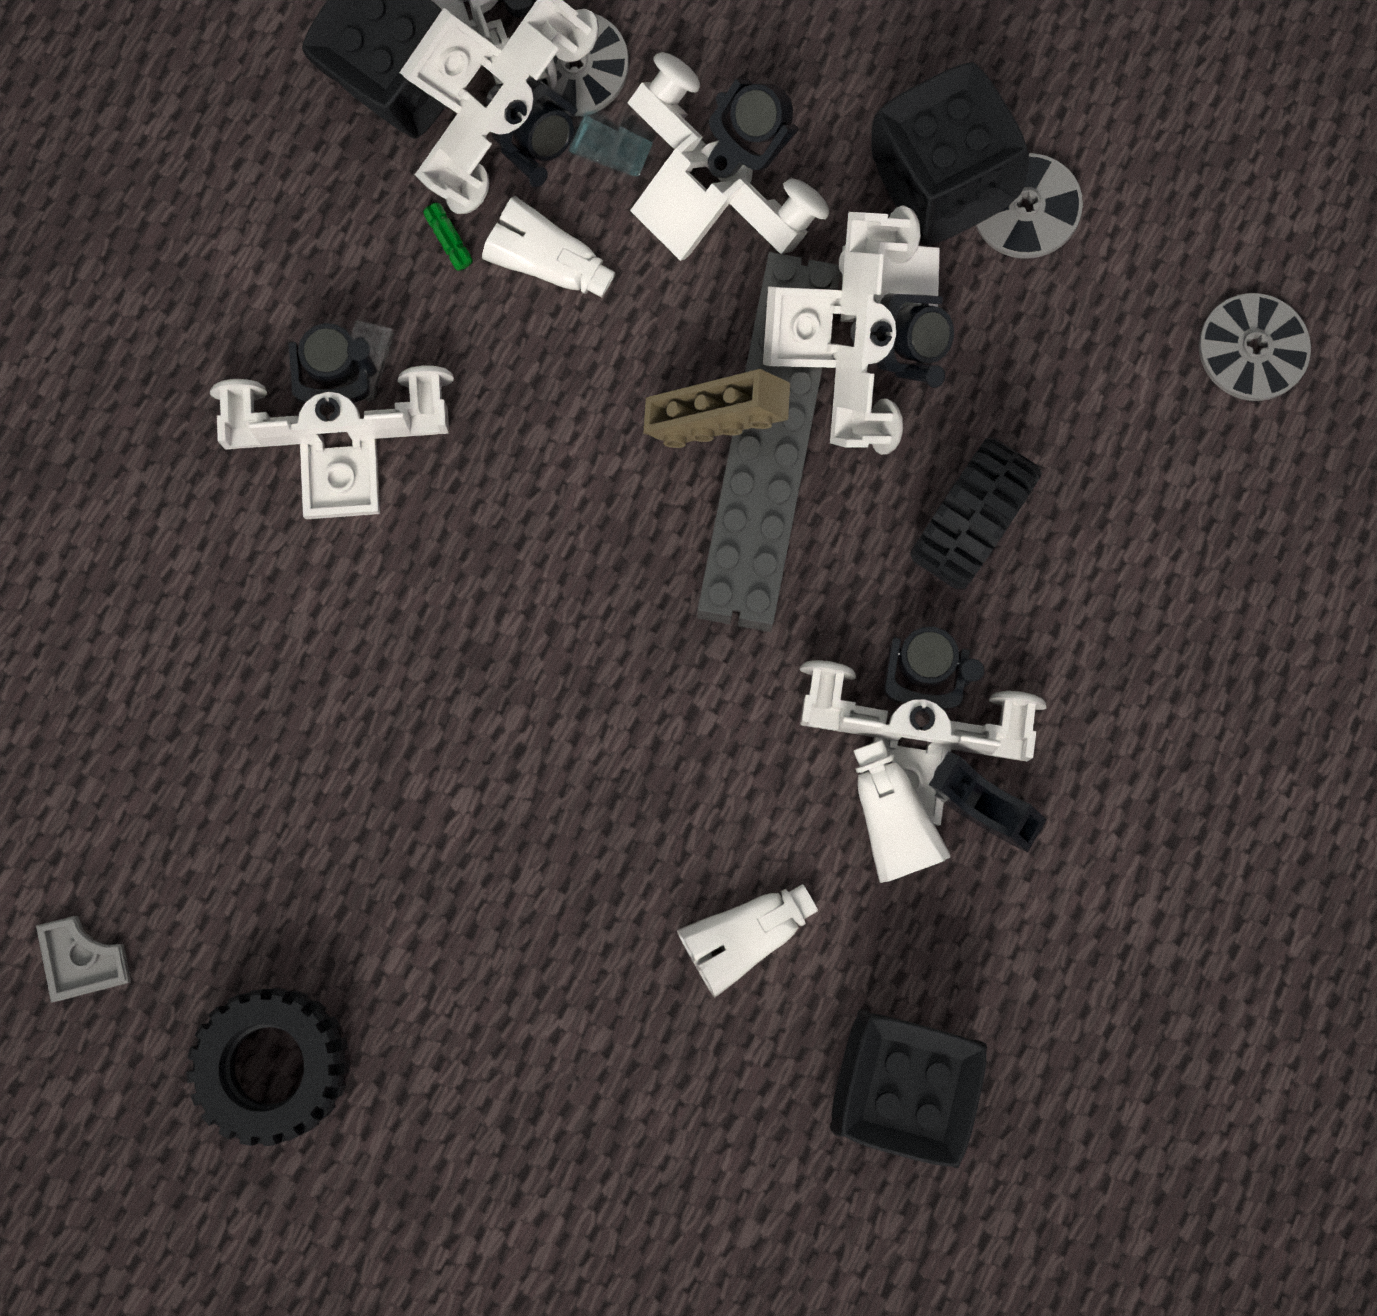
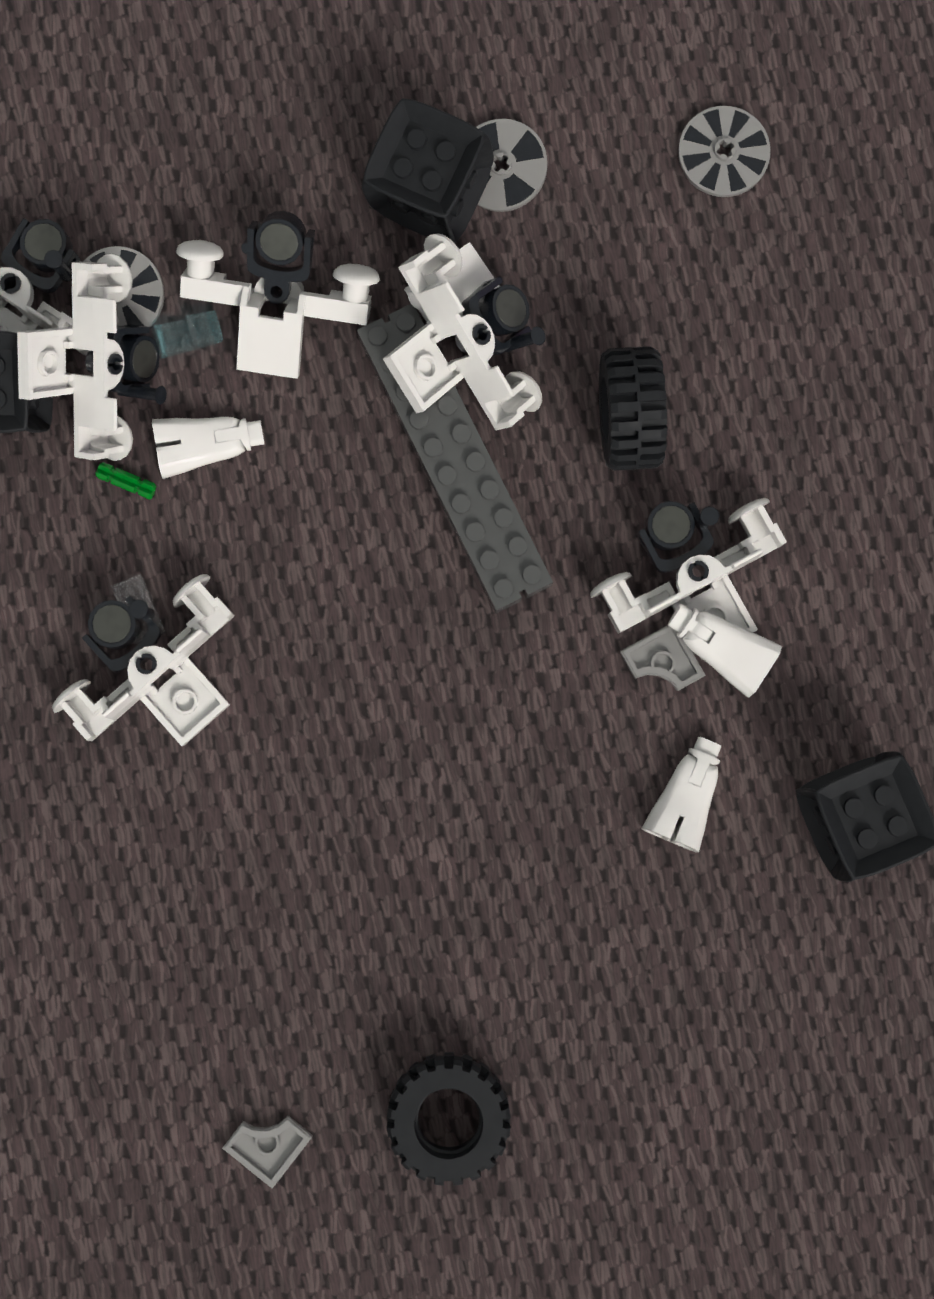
camera: 40 degrees left, 5 degrees up
(717, 408) = (407, 465): dark tan brick -> none
(828, 781) = (663, 656): none -> light grey tile
(985, 803) = (778, 594): black arch -> none

